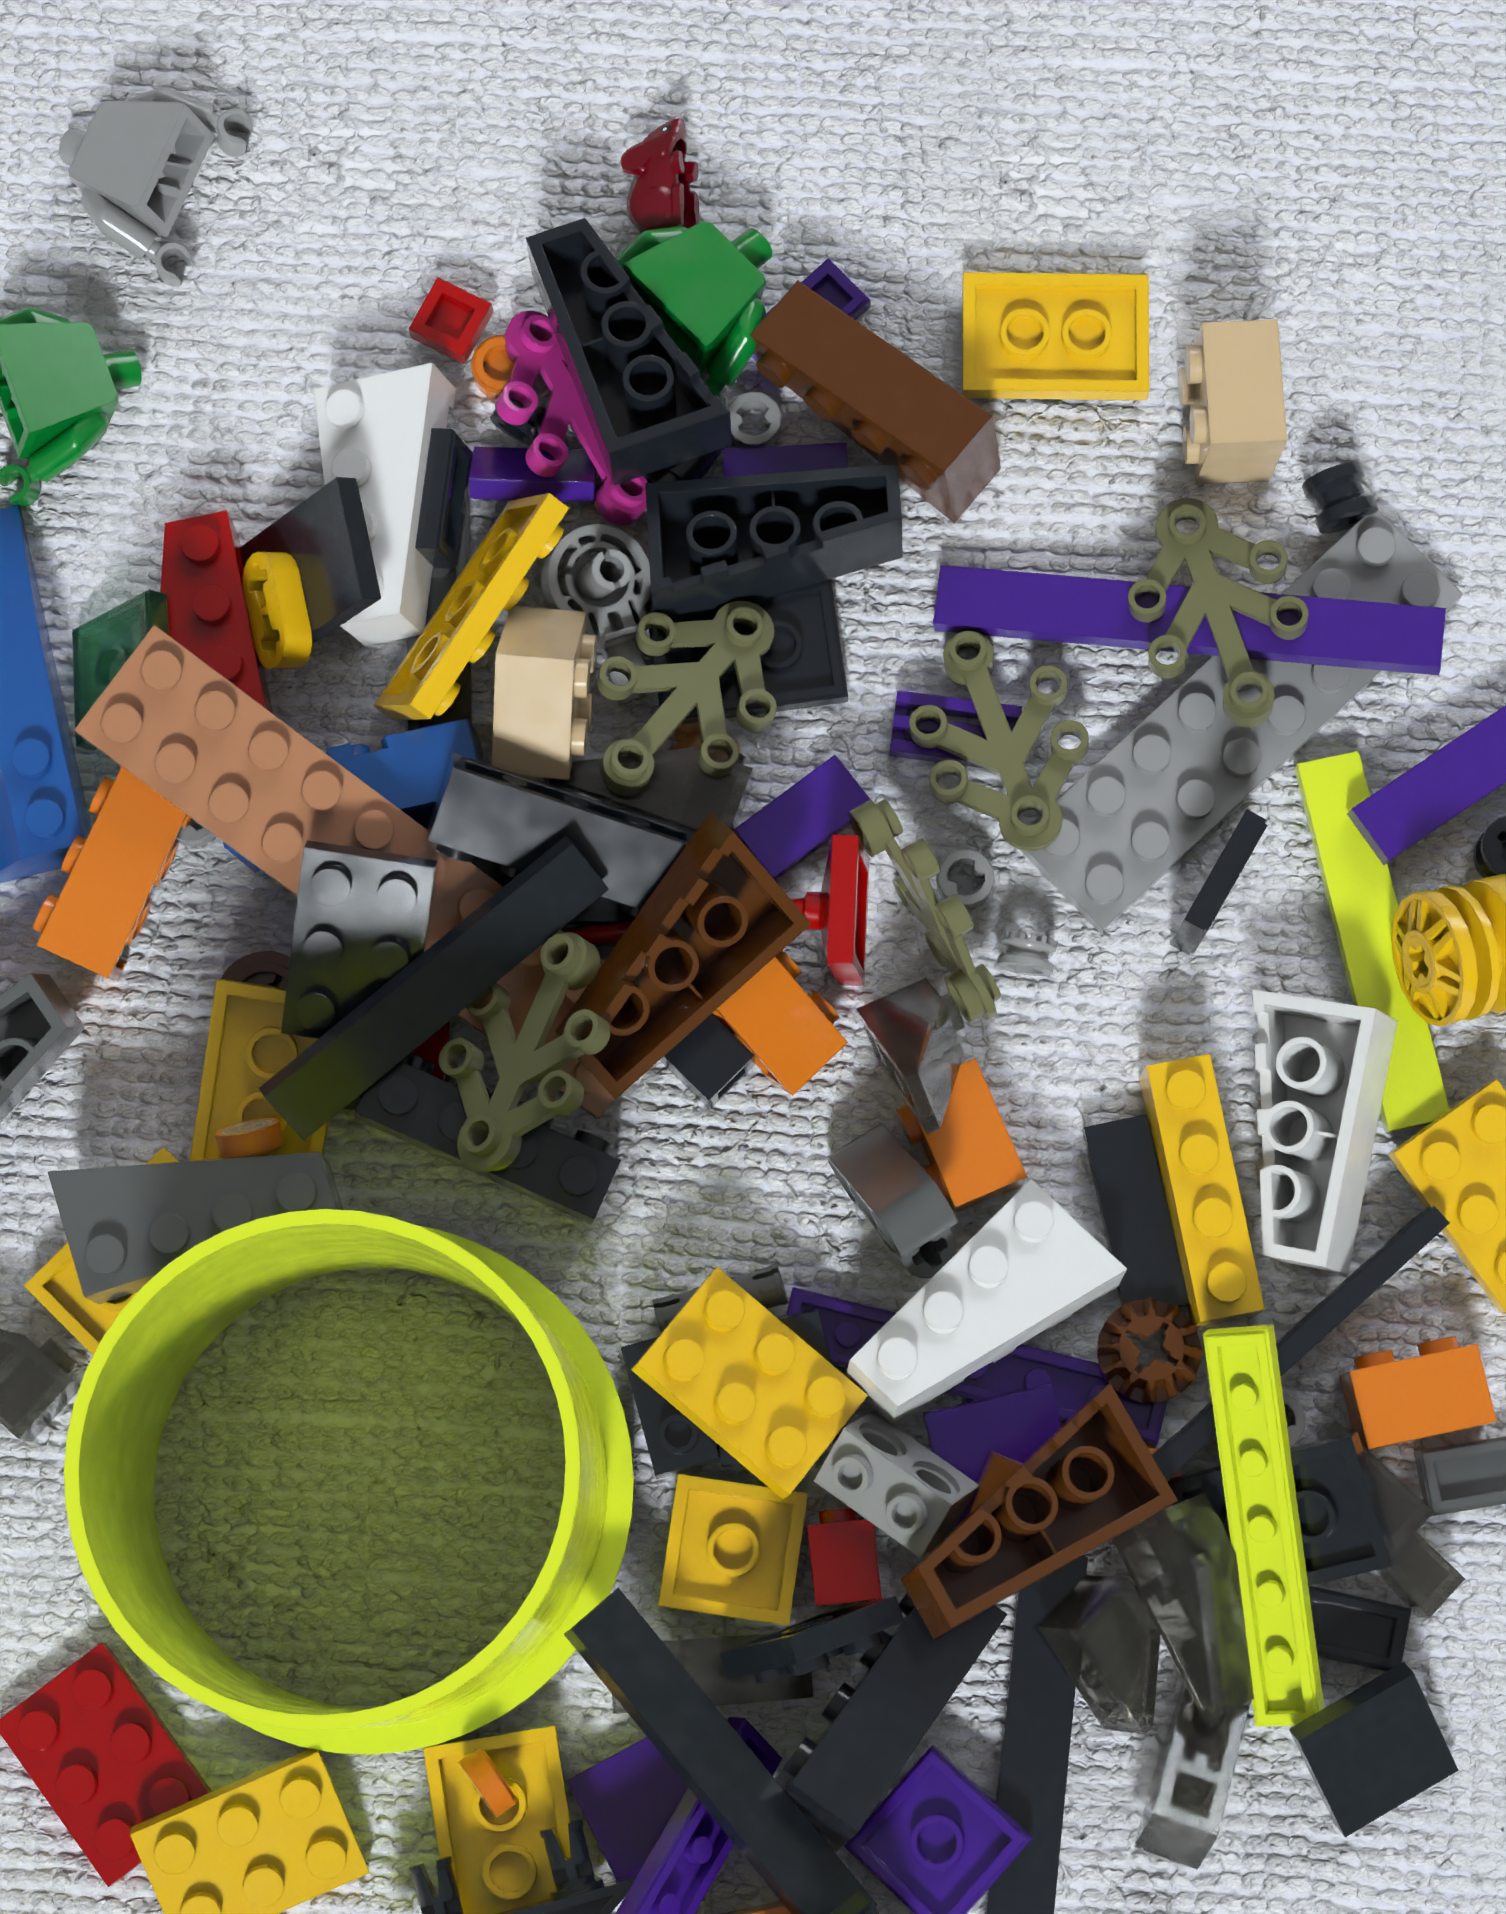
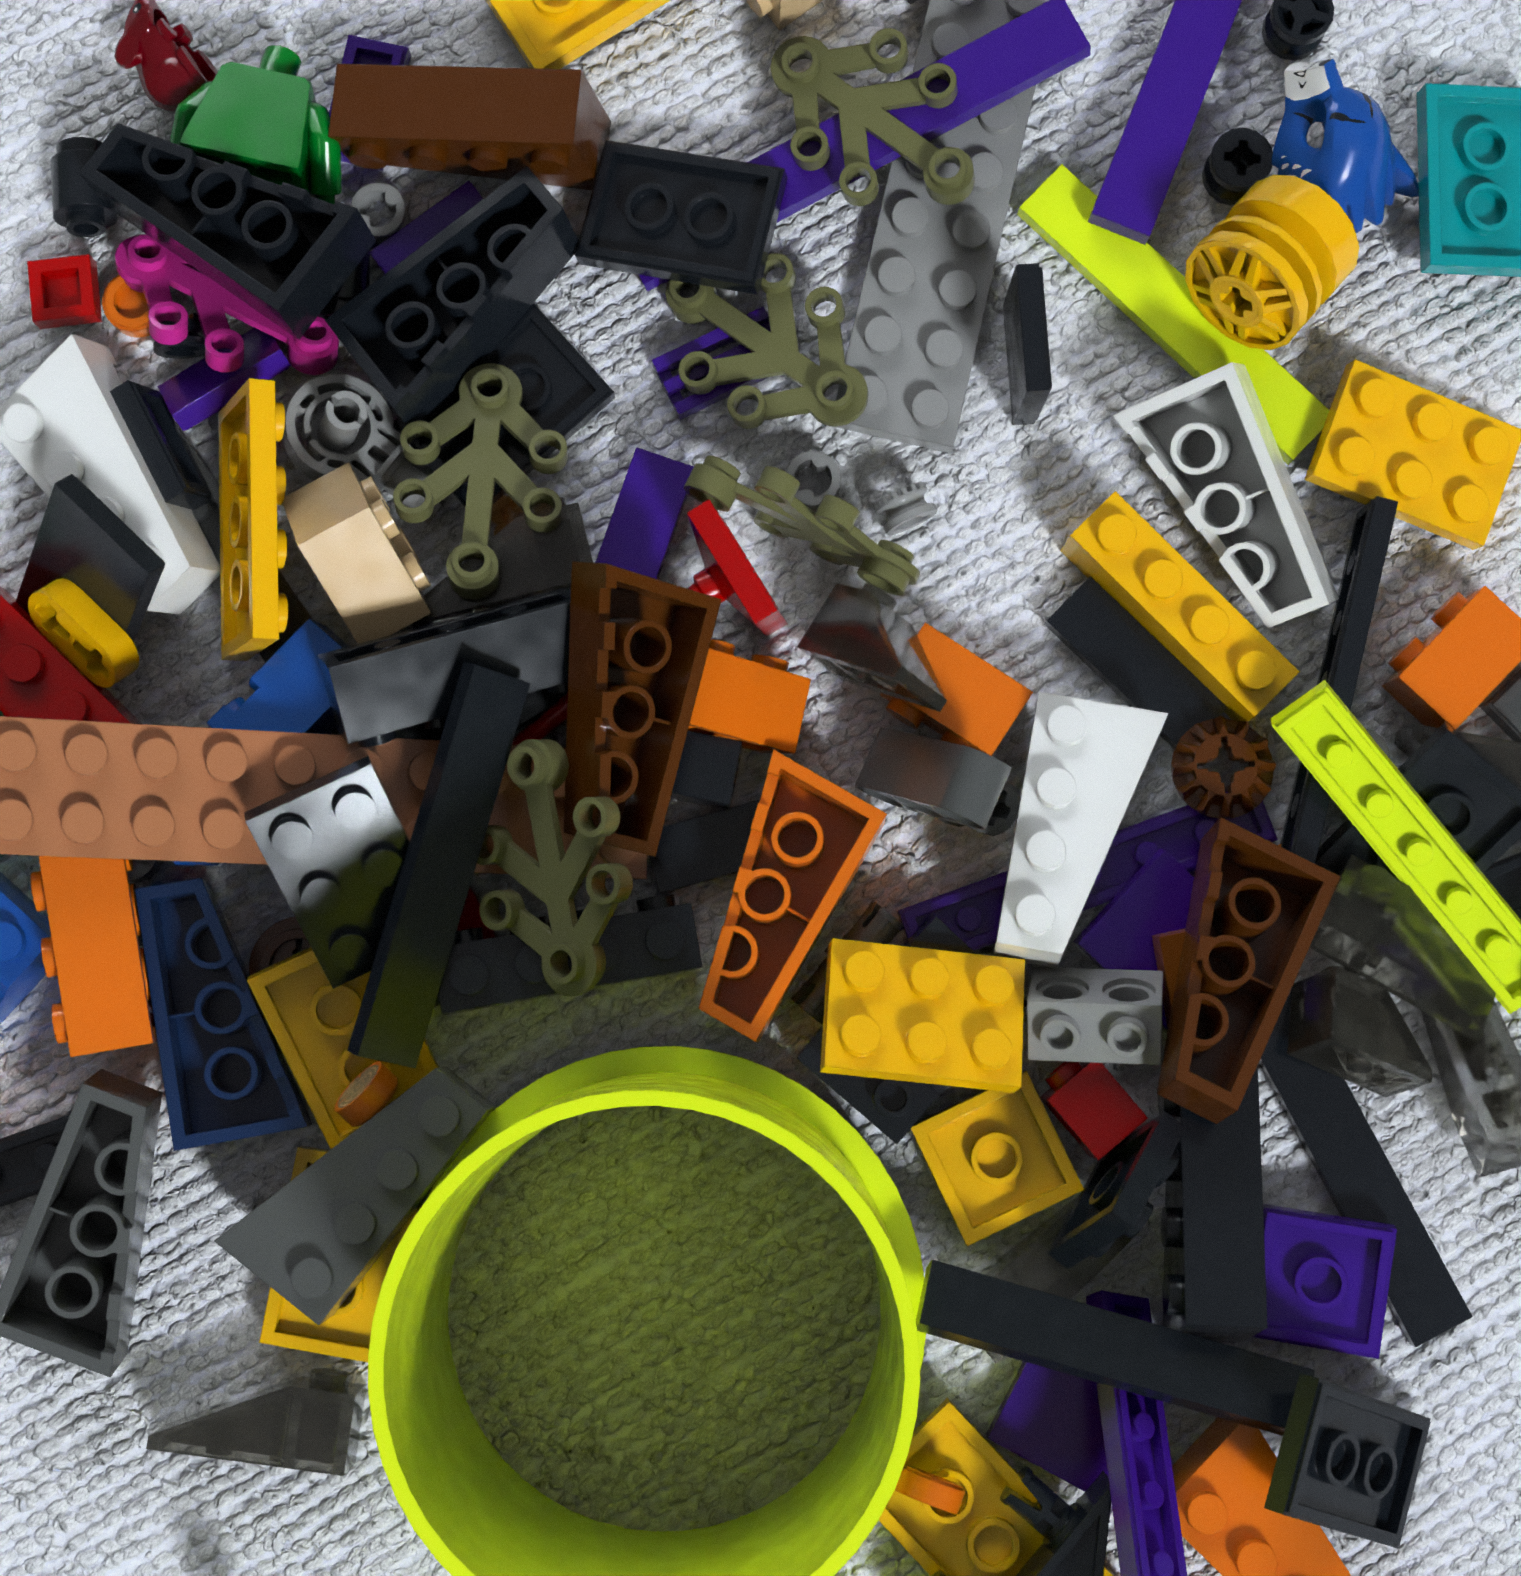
camera: 35 degrees left, 5 degrees up
(156, 1014) = (212, 1038): none -> dark blue wedge
(508, 252) = (72, 198): none -> black brick
(674, 1130) = (702, 848): none -> black tile
(705, 1206) = (785, 891): none -> orange wedge
(1001, 588) = (681, 217): none -> black tile

